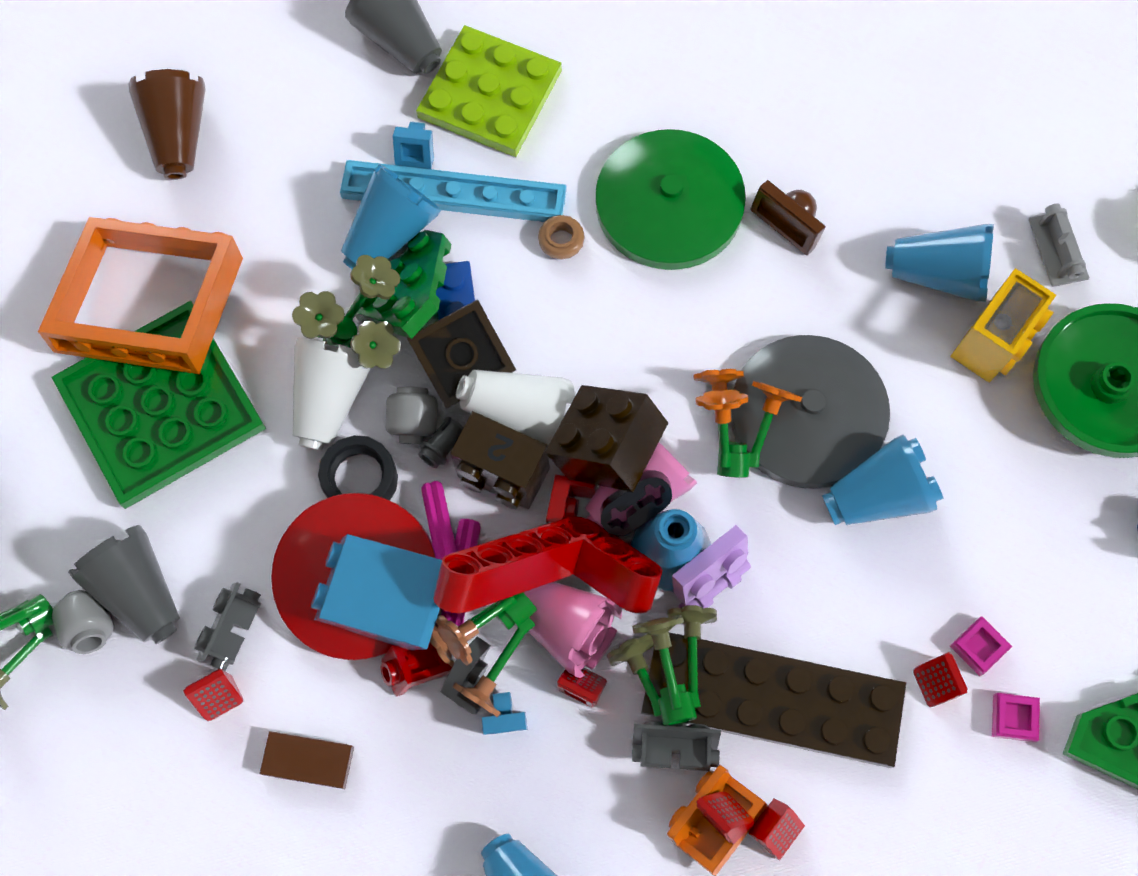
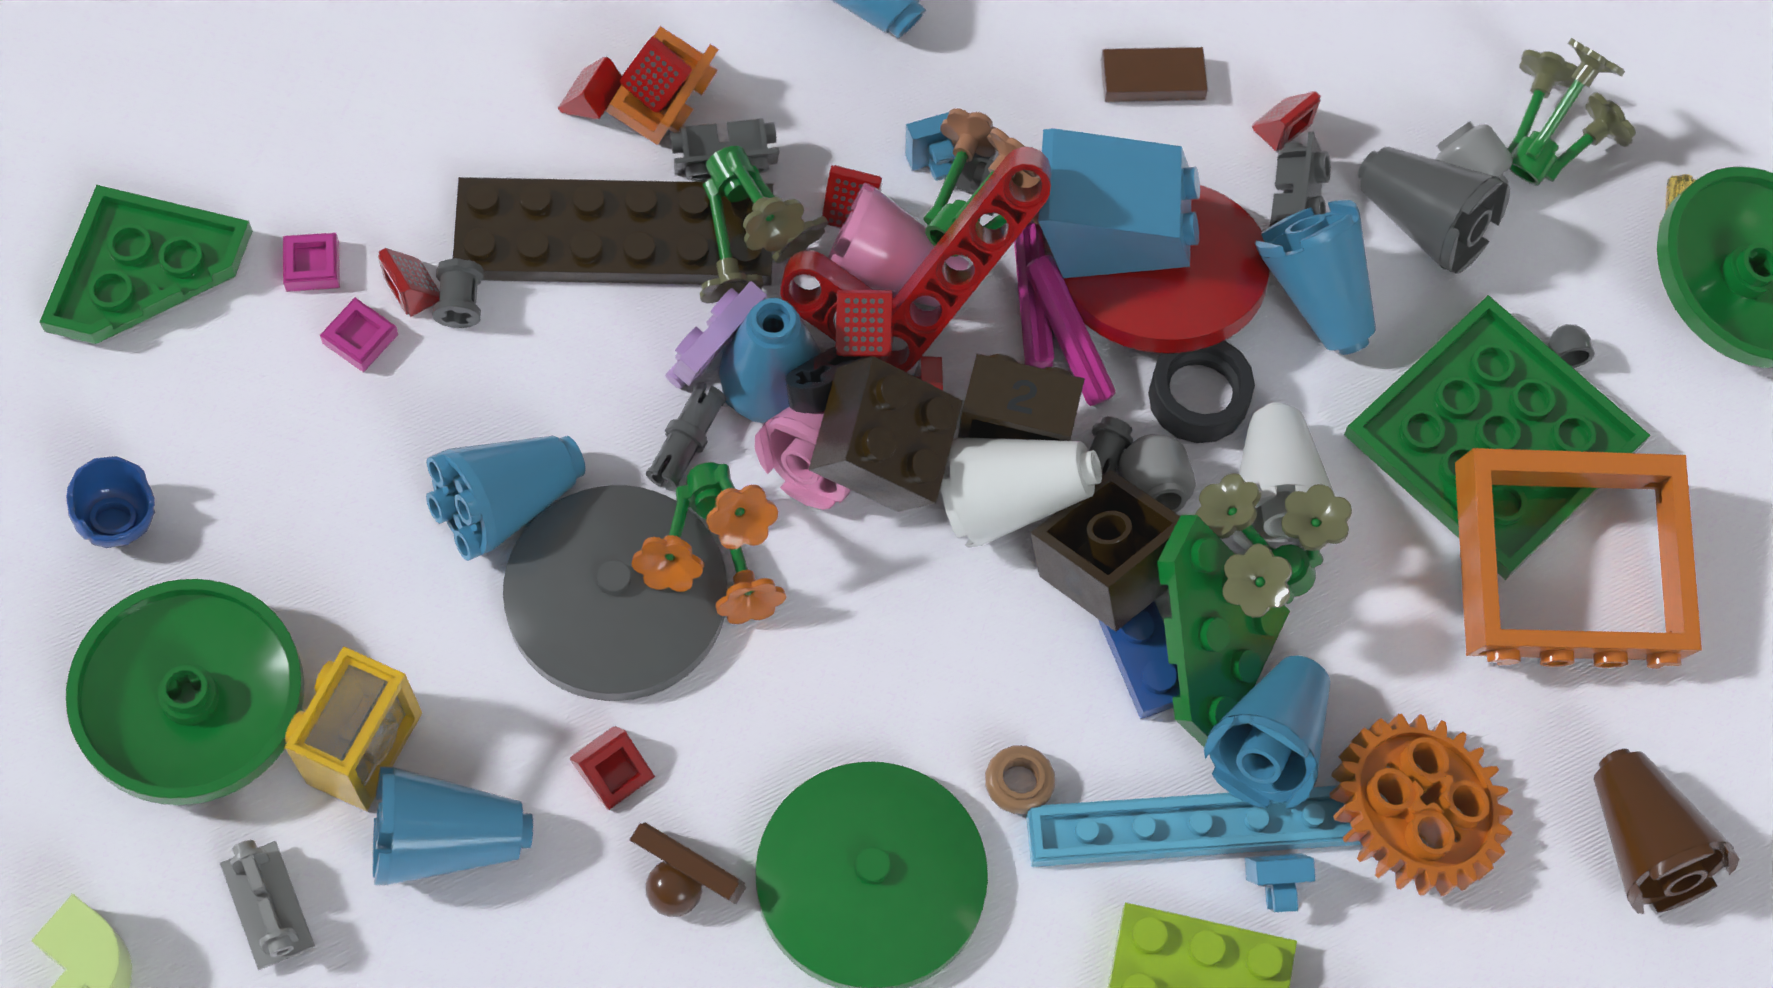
camera: 160 degrees right, 5 degrees down
(76, 460) = (1572, 345): none -> dark grey hinge
(239, 538) = (1324, 272): none -> dark azure cone
(281, 183) = (1421, 804): none -> orange gear
(603, 531) = (864, 323): none -> red slope
(745, 510) = (686, 436): none -> dark grey pin
(828, 296) = (612, 766): none -> red slope
(903, 658) = (458, 293): none -> dark grey bush

